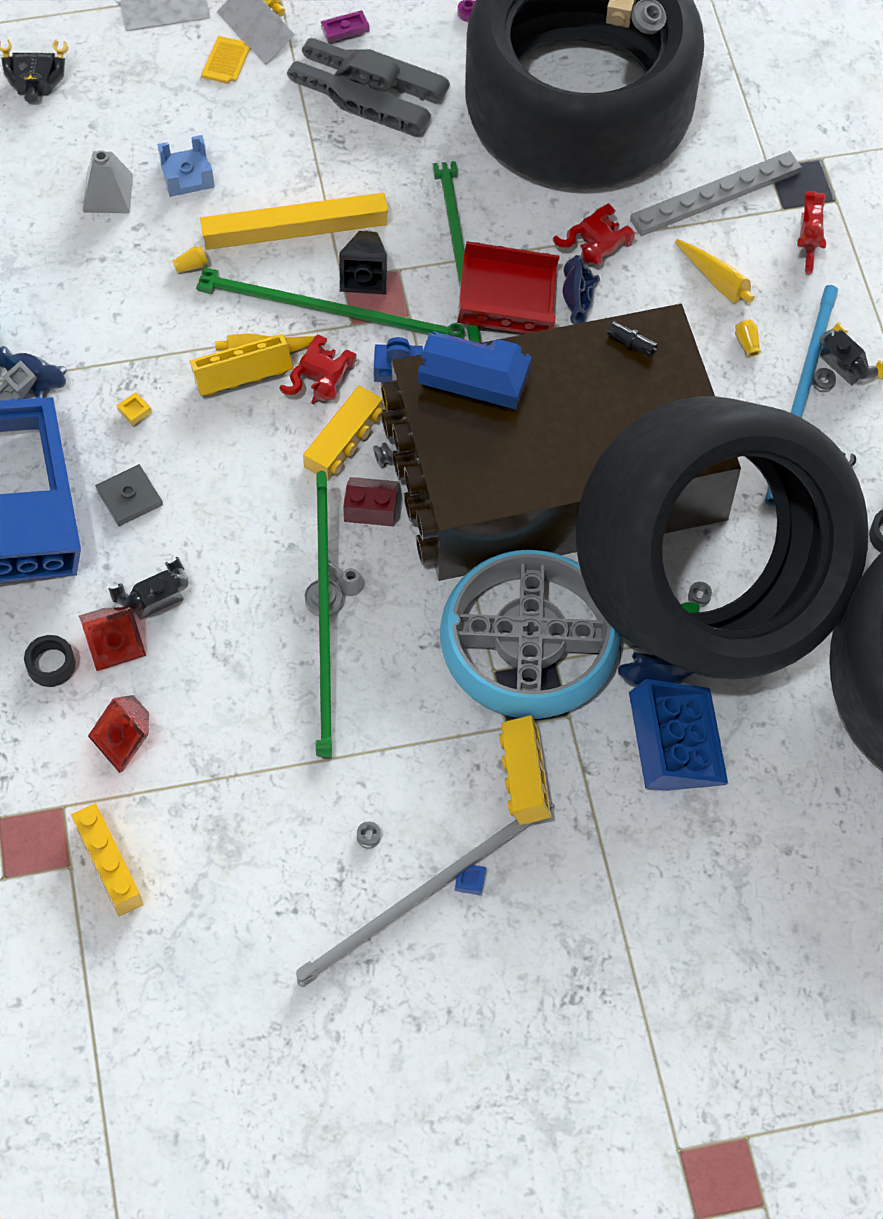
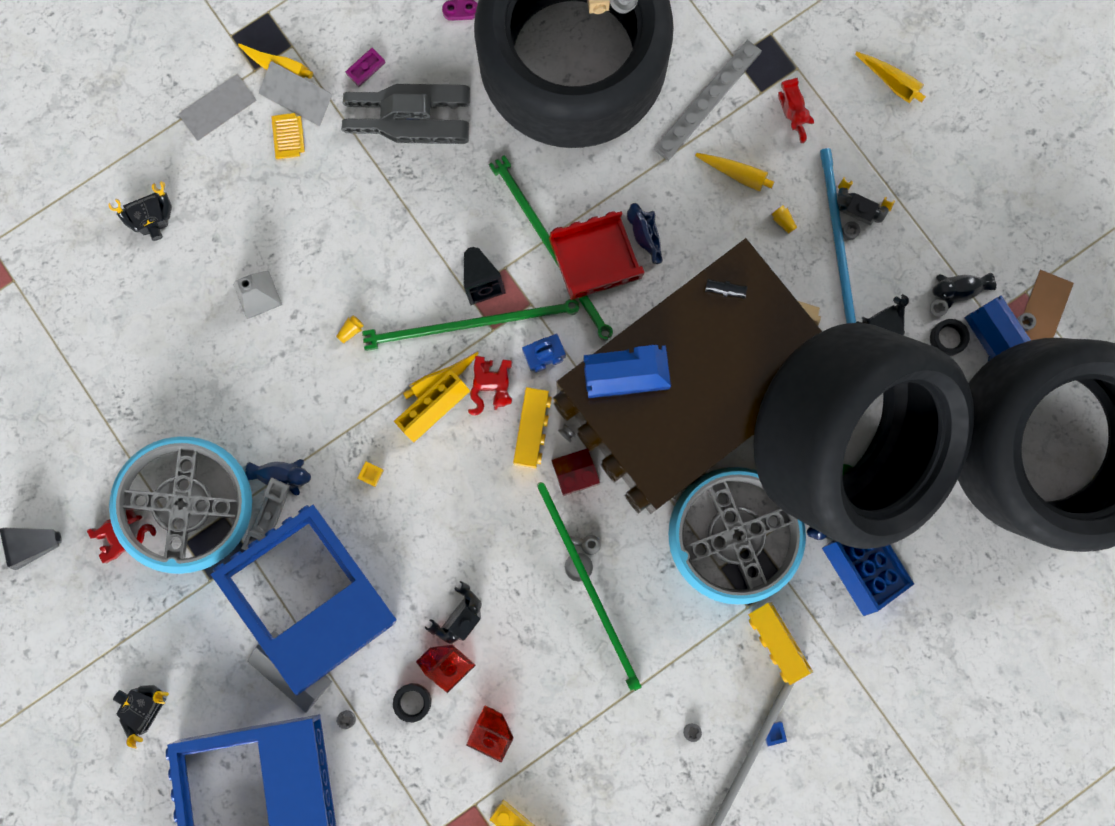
camera: 20 degrees left, 20 degrees up
(128, 495) = (401, 544): dark grey plate -> none
(186, 170) = (307, 249): medium blue panel -> none
(294, 221) = (410, 262): yellow tile -> none
(601, 235) = (640, 177): red animal -> none

